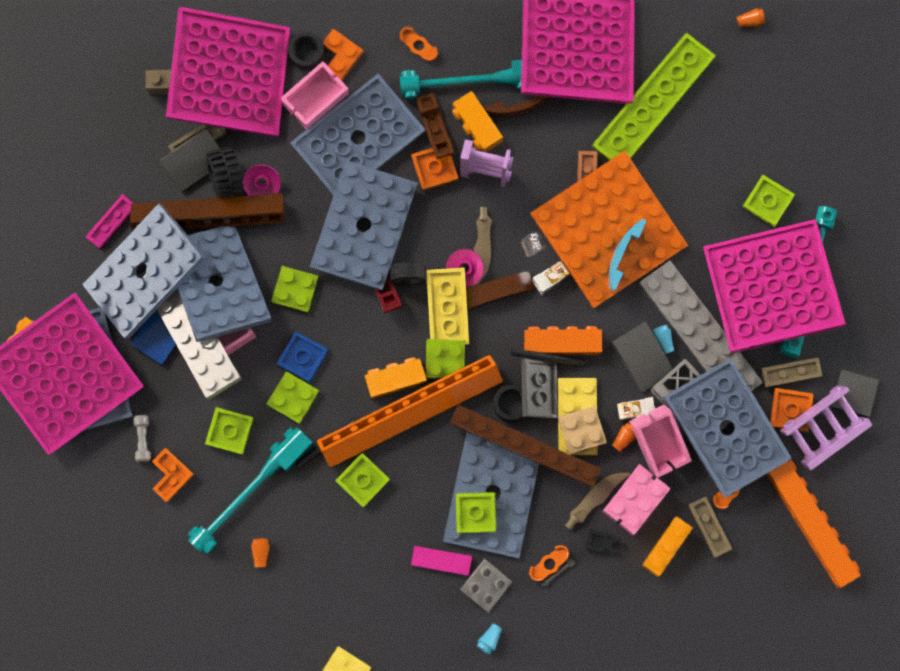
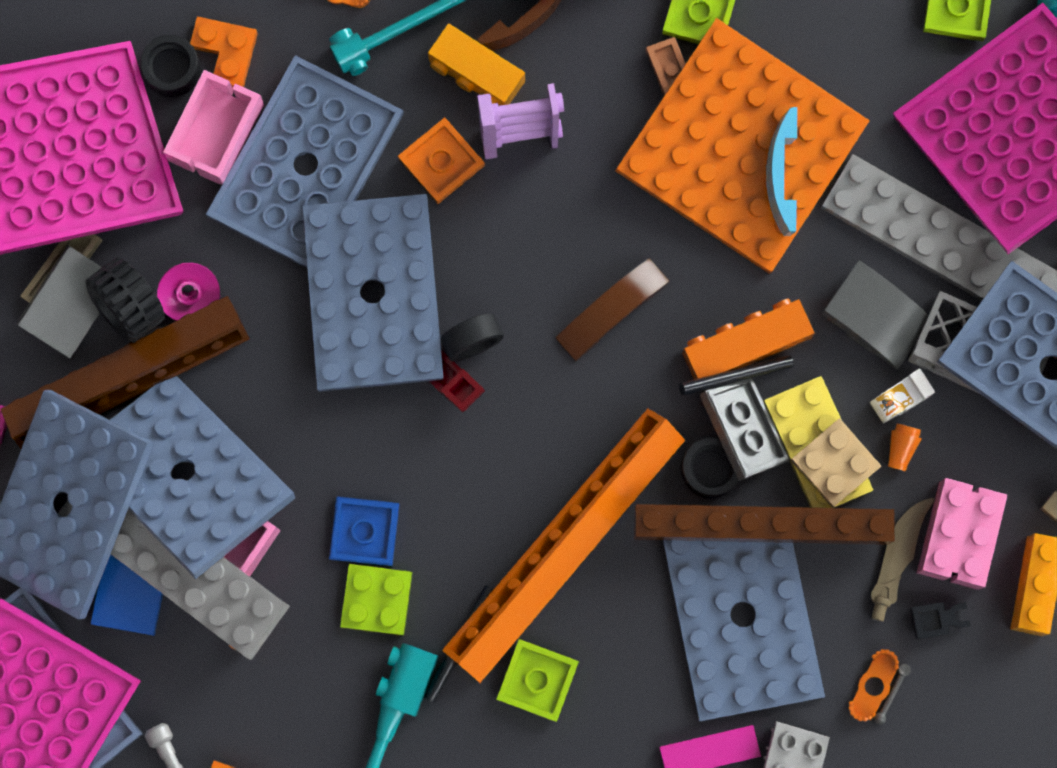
camera: 25 degrees left, 0 degrees up
(229, 431) = (301, 692): lime plate -> none
(295, 289) = (308, 433): lime plate -> none
(395, 378) = (520, 503): light orange brick -> none
(434, 126) = (415, 101): reddish brown slope -> none
(444, 357) = (580, 441): lime plate -> none
(447, 304) = (553, 362): light yellow plate -> none
(472, 259) = (541, 305): dark pink dish -> none
(475, 512) = (732, 657): lime plate -> none
(483, 243) = (564, 251): dark tan sword -> none
(532, 244) = (638, 215): clear tile -> none
(550, 277) = (687, 254): white leg -> none
(660, 440) = (961, 428): bright pink piece -> none
(664, 338) = (895, 271): medium azure cone -> none

